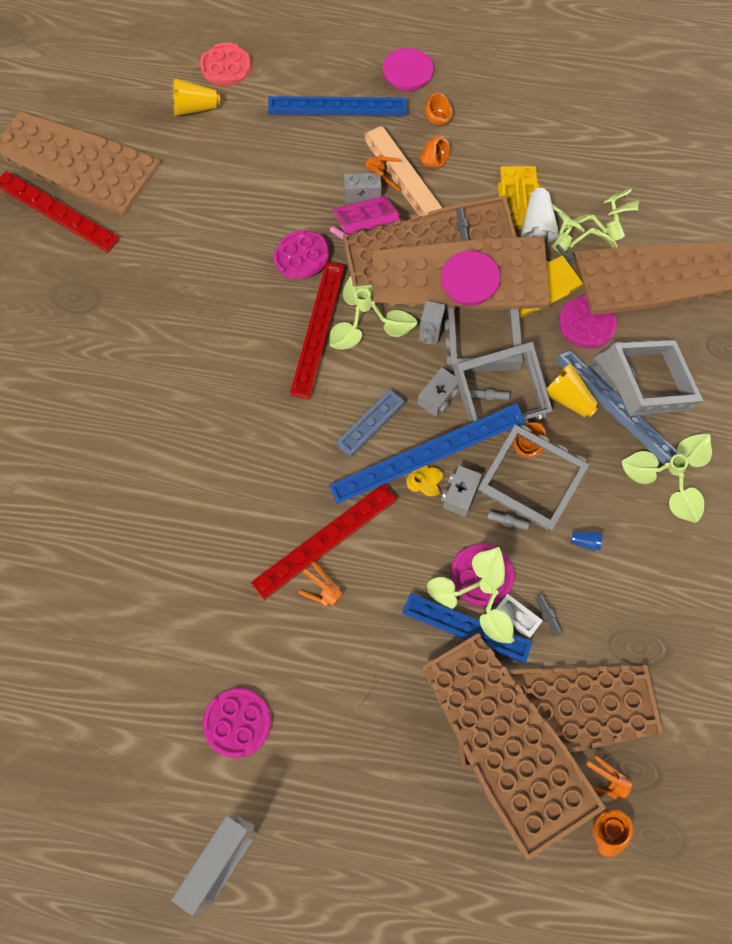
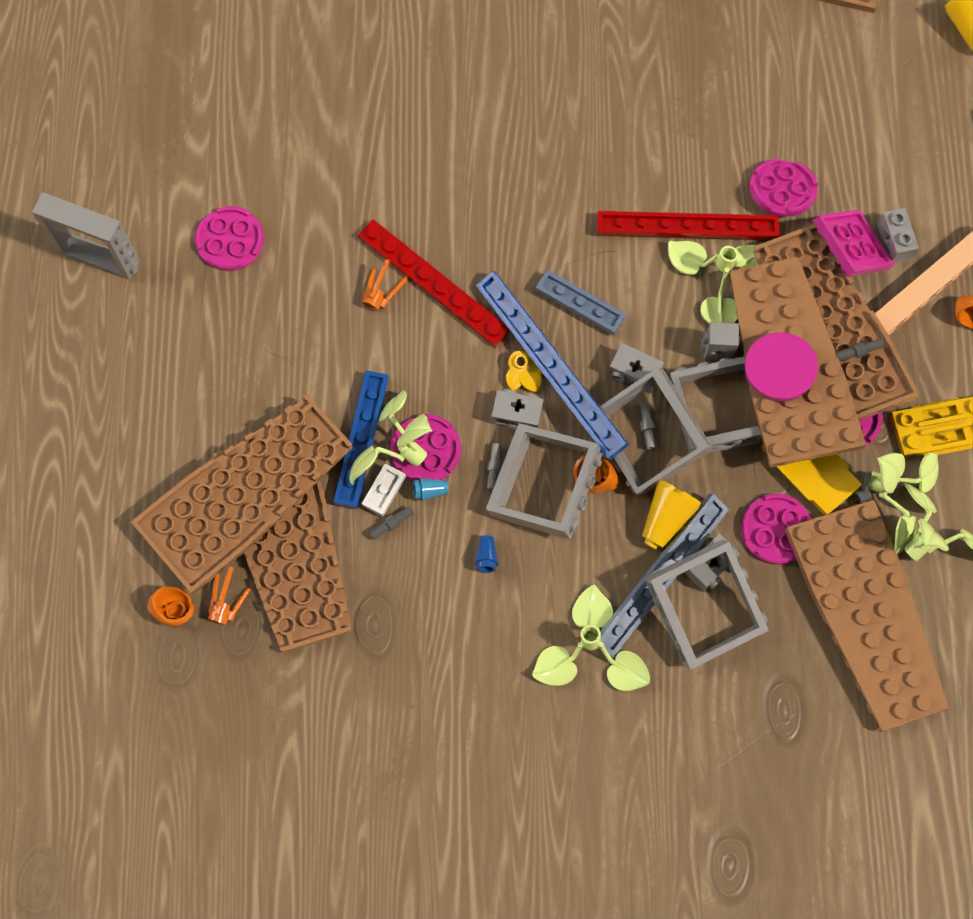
camera: 80 degrees right, 5 degrees up
(376, 166) = (935, 244): orange plant -> none
(522, 578) = (429, 488): none -> dark azure cone
(540, 216) = (910, 441): white cone -> none

